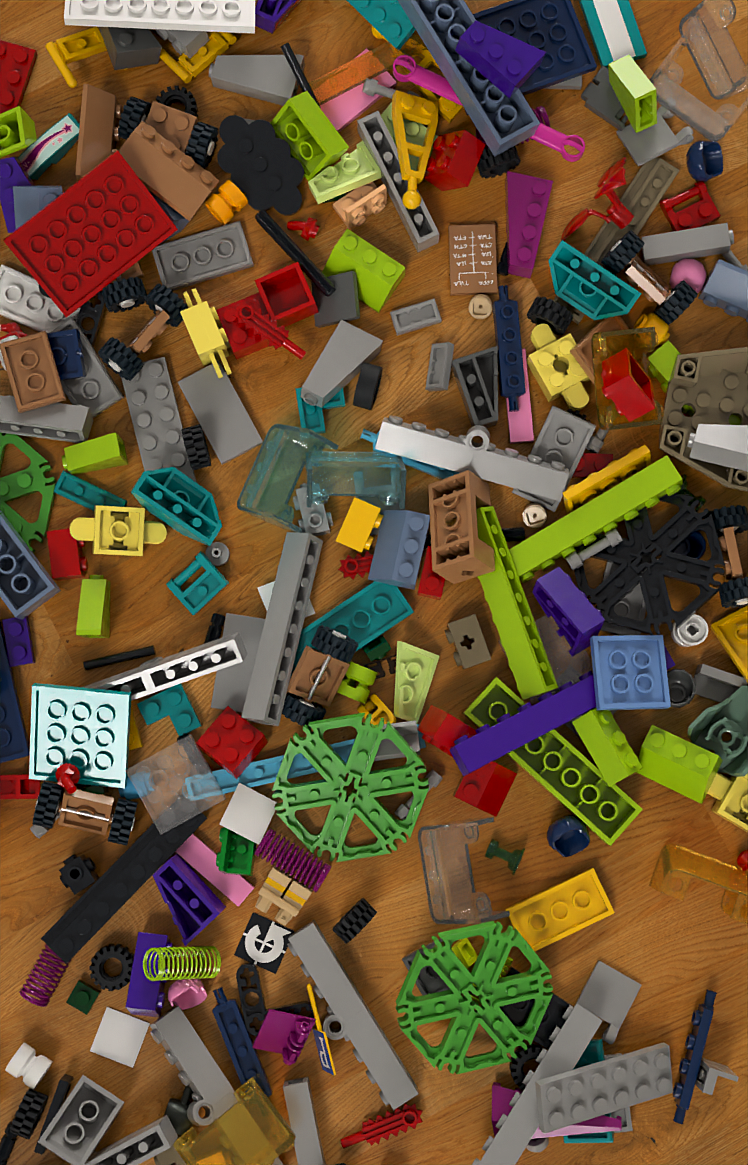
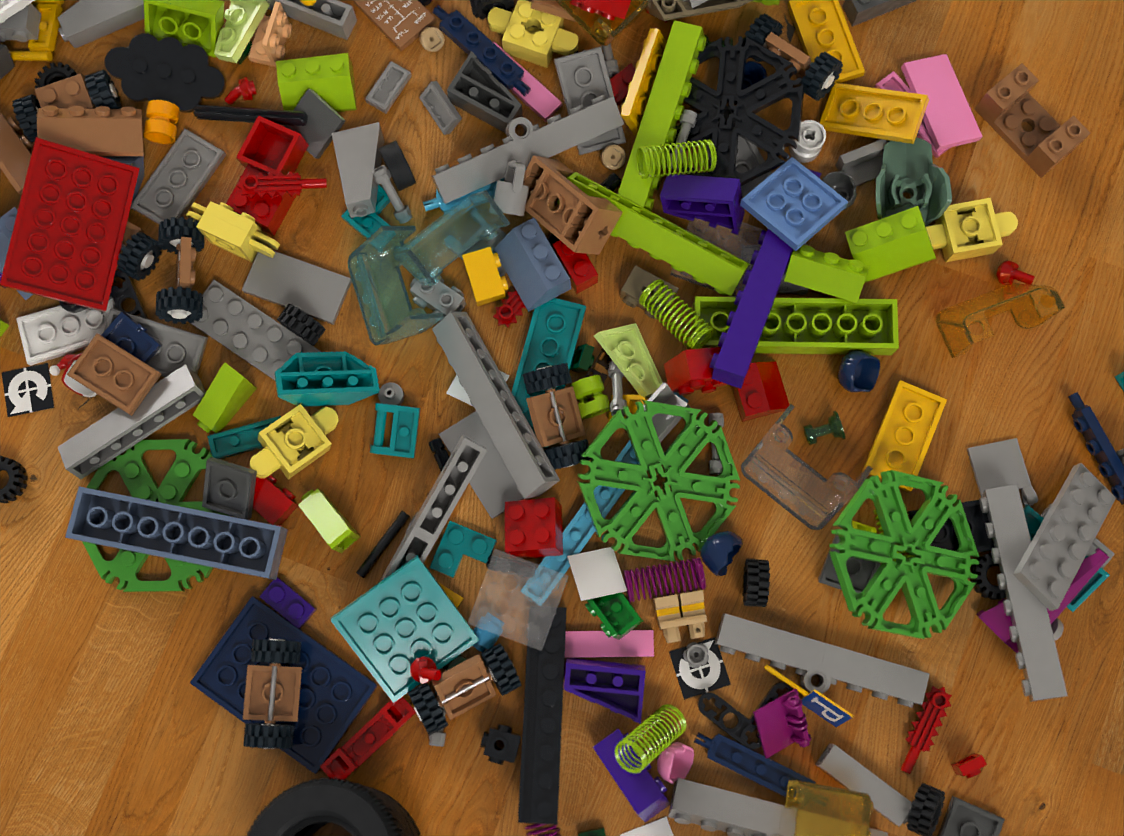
camera: 40 degrees left, 5 degrees down
(43, 525) = (229, 488): none -> dark grey tile
(99, 974) = (596, 813): black tyre -> none
(268, 938) = (701, 649): none -> light grey plate
(342, 423) = (382, 176): none -> light grey bar
(349, 875) = (719, 551): none -> dark blue hair
(370, 706) = (618, 401): none -> light grey bar
(429, 483) = (511, 193): none -> light grey piece
(467, 712) = (690, 345): none -> lime piece
(549, 540) = (702, 152): none -> lime piece

